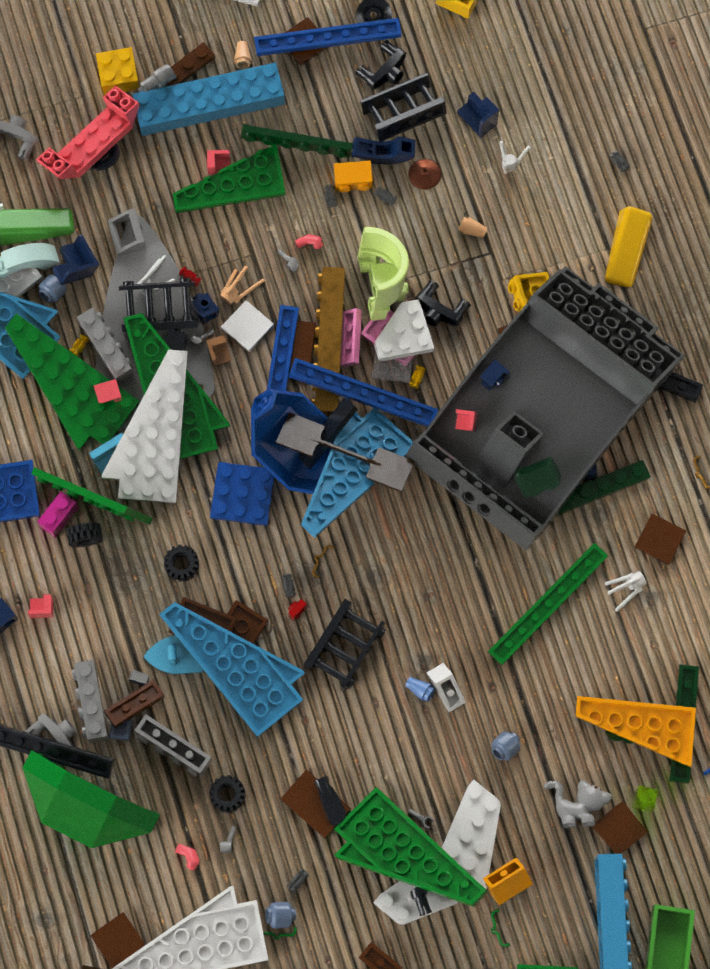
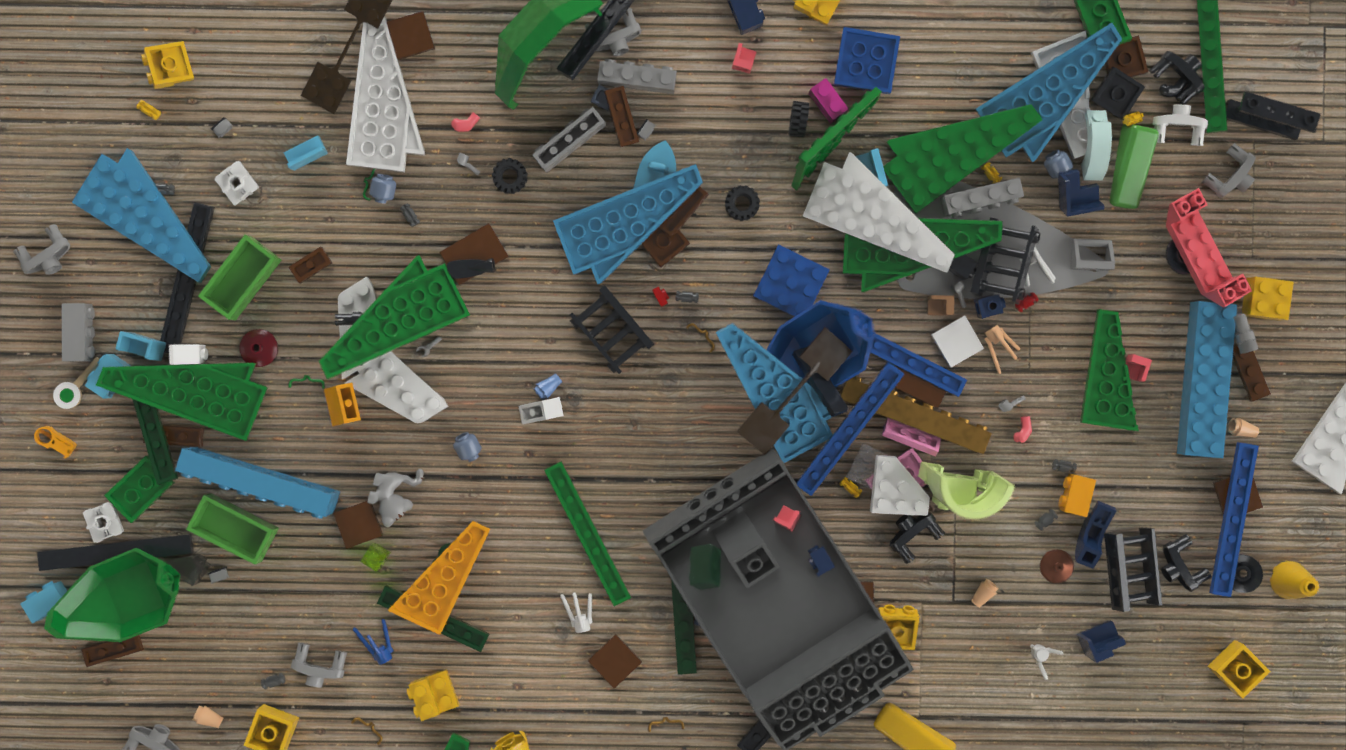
camera: 105 degrees right, 15 degrees up
(108, 391) = (931, 183): coral panel -> none
(294, 140) = (1135, 445): dark green plate -> none

